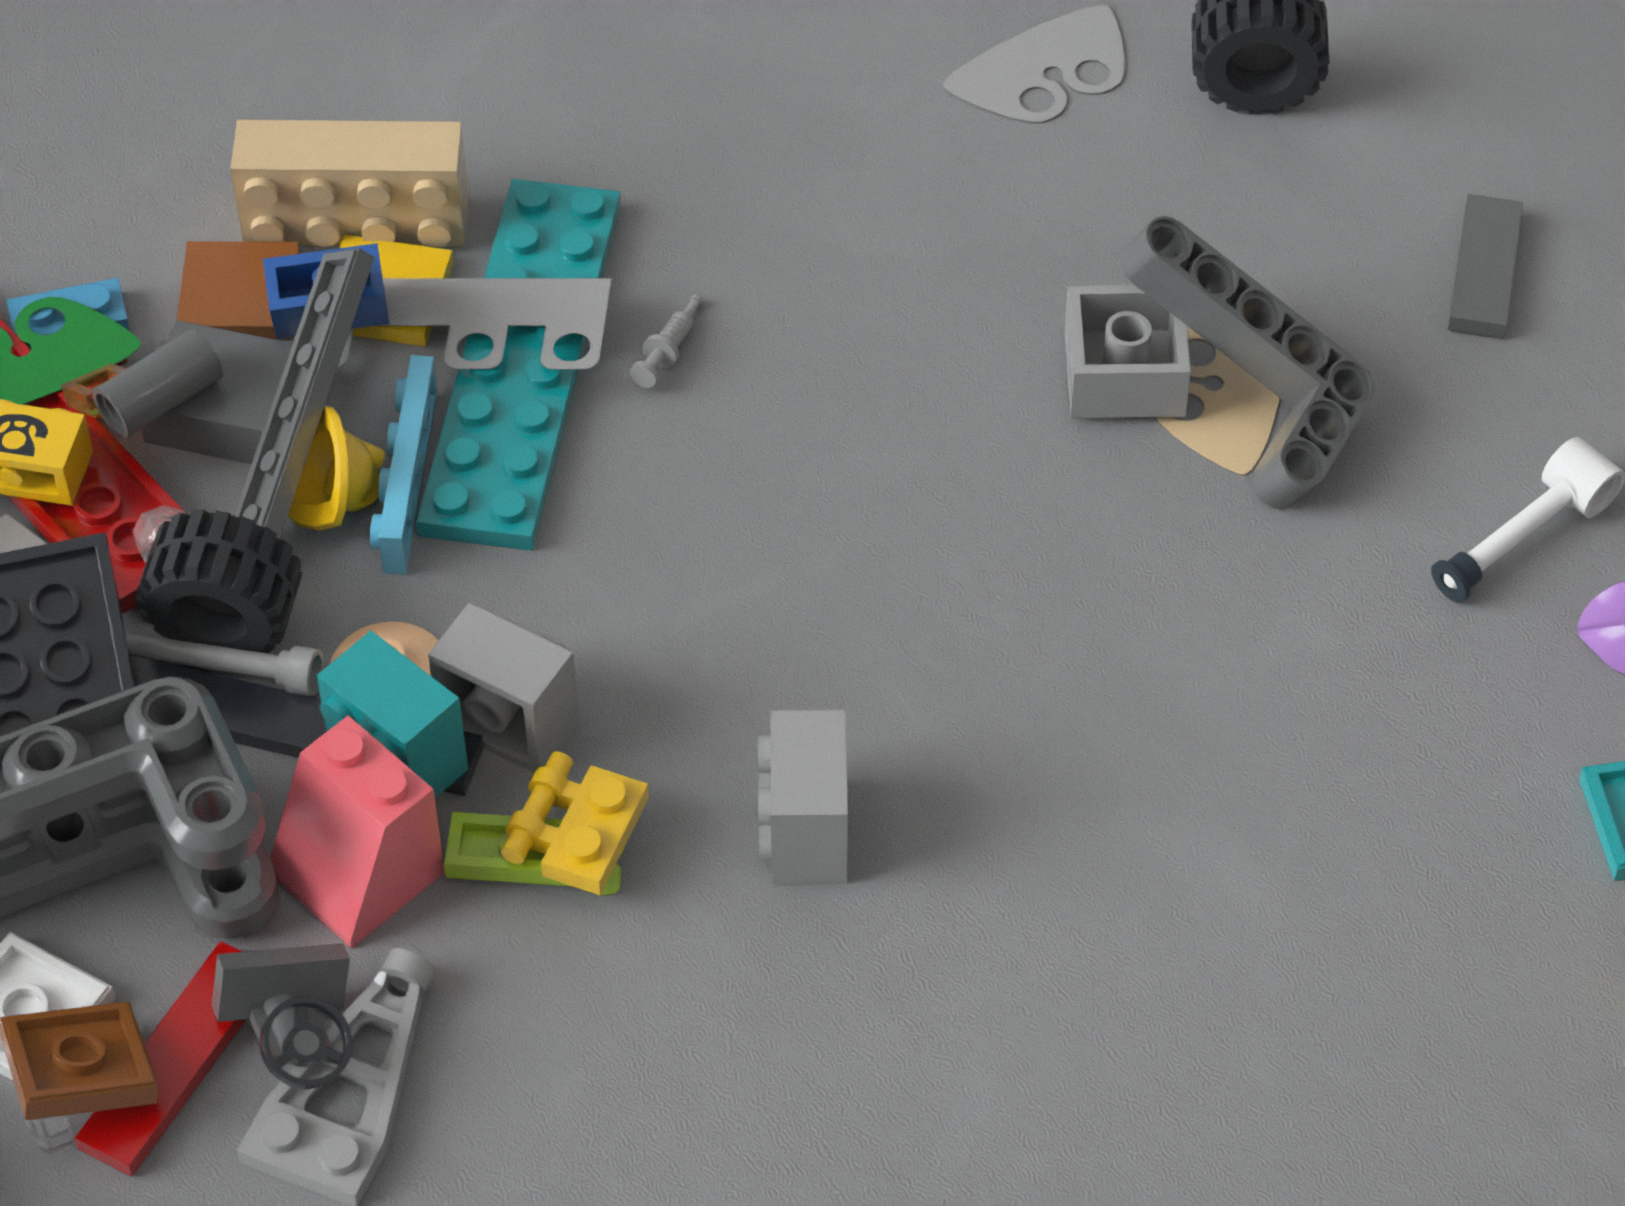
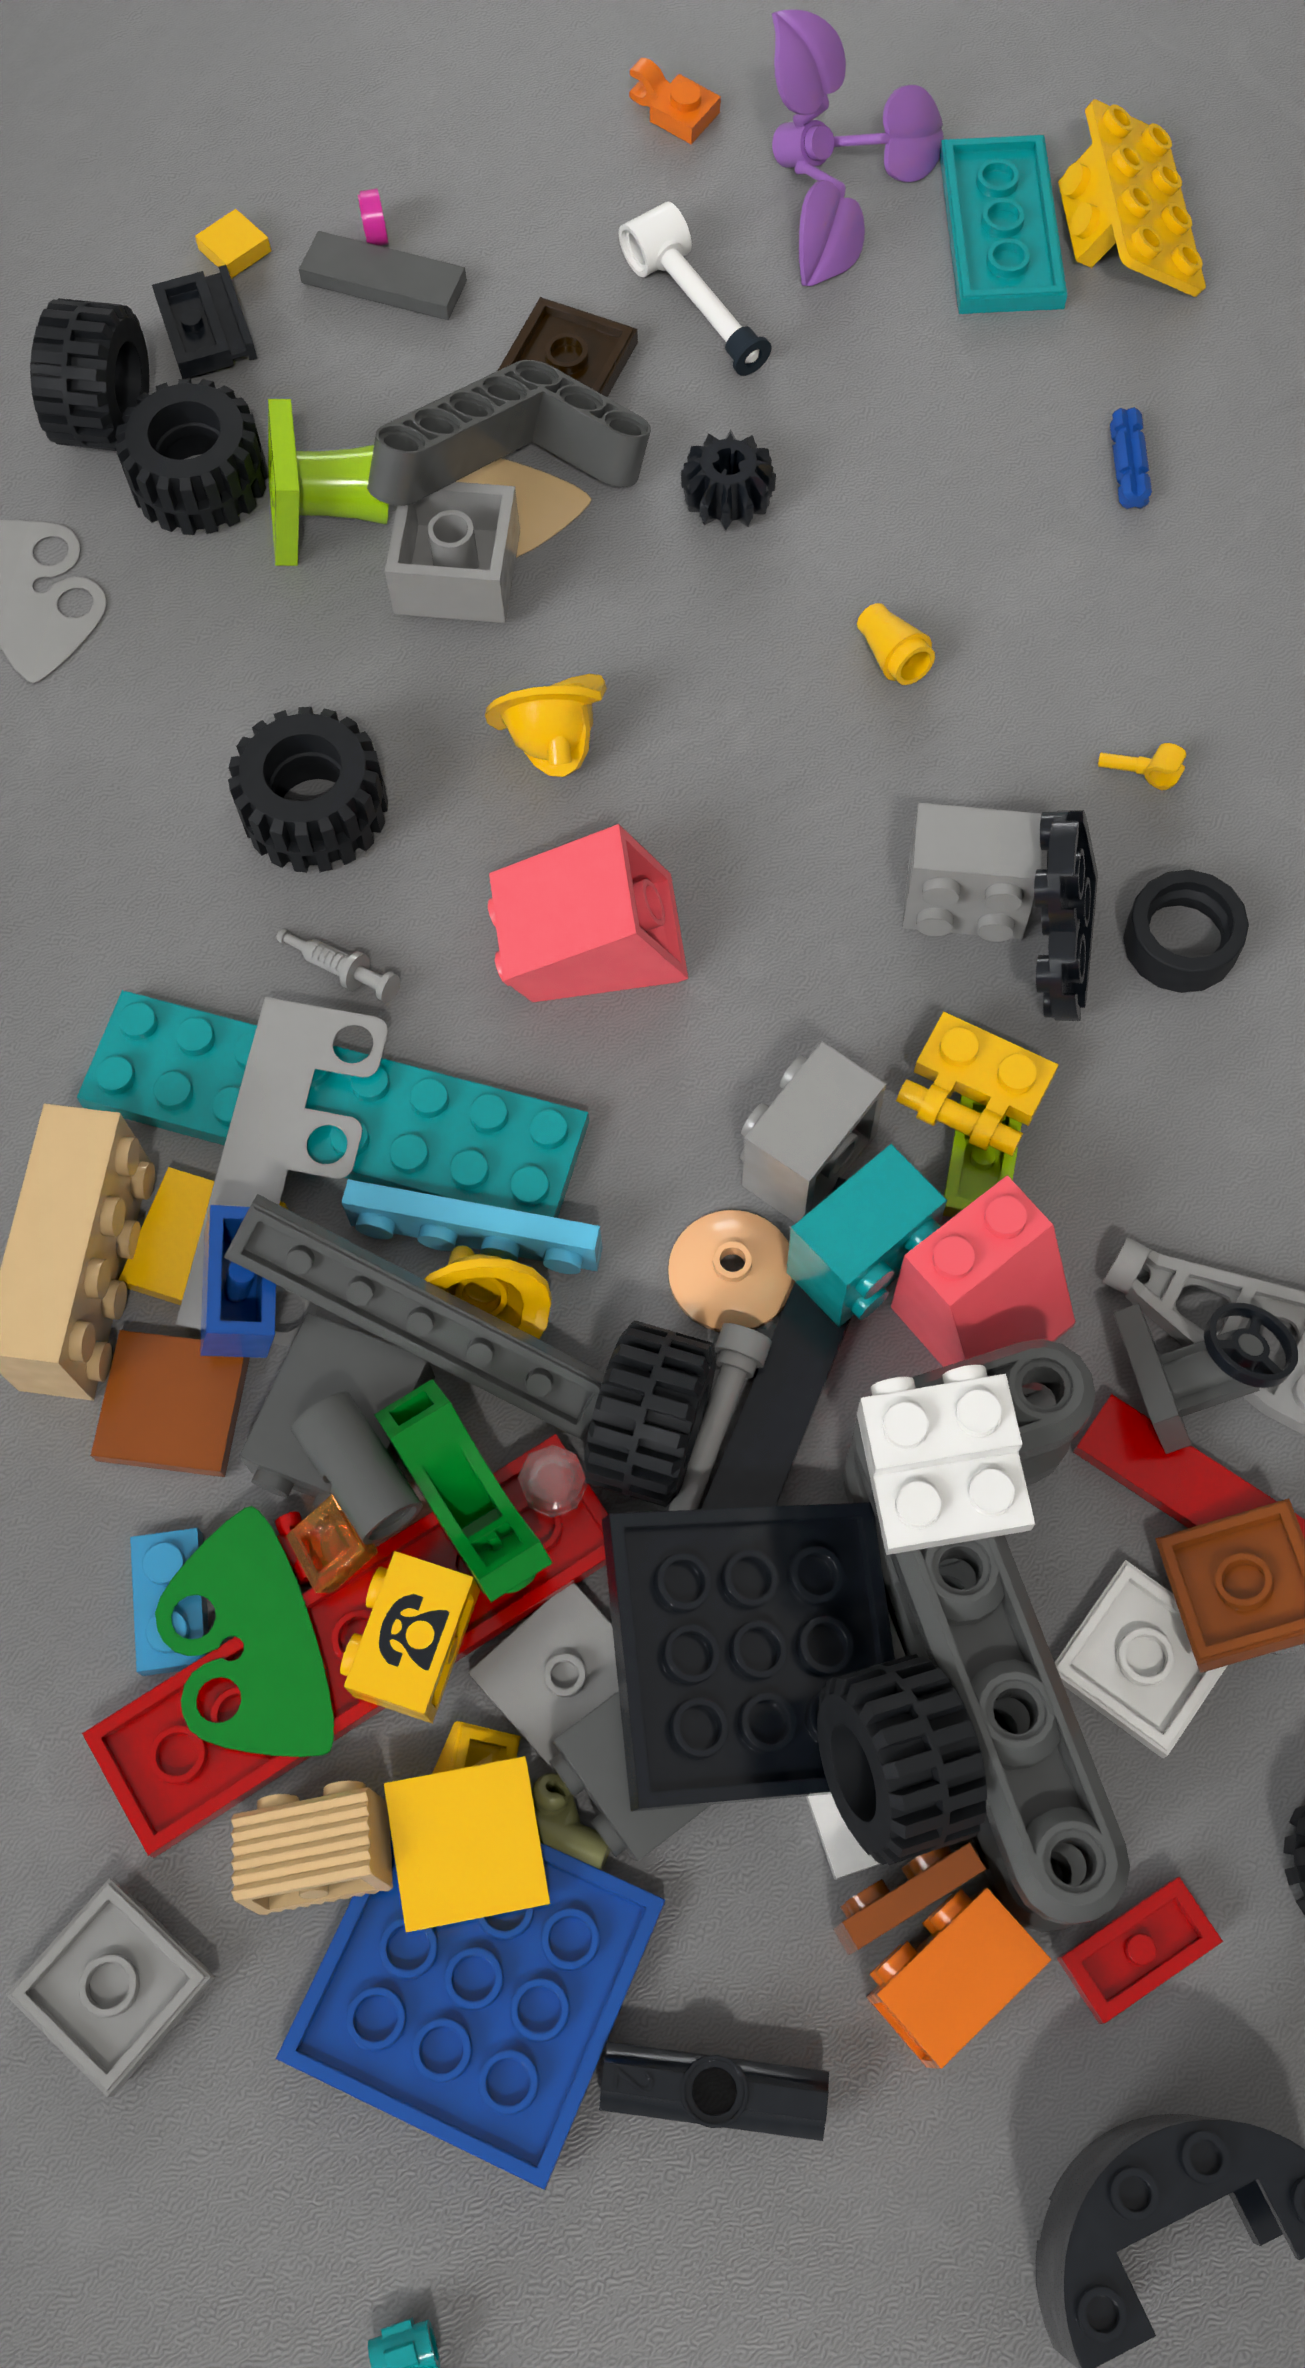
camera: 80 degrees left, 15 degrees up
(131, 720) = (944, 1460): none -> white plate
(148, 468) = (463, 1491): none -> green arch
(727, 512) = (586, 920): none -> coral slope
(769, 875) = (1068, 903): none -> black plate
(792, 968) = (1194, 891): none -> black tyre
(836, 249) = (303, 750): none -> black tyre
(943, 455) = (550, 721): none -> yellow helmet
(991, 990) = (1160, 771): none -> yellow hand
(1096, 737) = (899, 647): none -> yellow cone
(1189, 193) = (313, 483): none -> lime plant
(1200, 142) = (186, 423): none -> black tyre
(1275, 572) = (728, 480): none -> black gear
(1380, 132) = (204, 322): none -> black plate
(1399, 944) = (1130, 458): none -> blue axle
(1417, 431) = (575, 344): none -> dark brown tile
(1494, 142) = (233, 243): none -> yellow tile
(1548, 241) = (372, 217): none -> dark pink tile

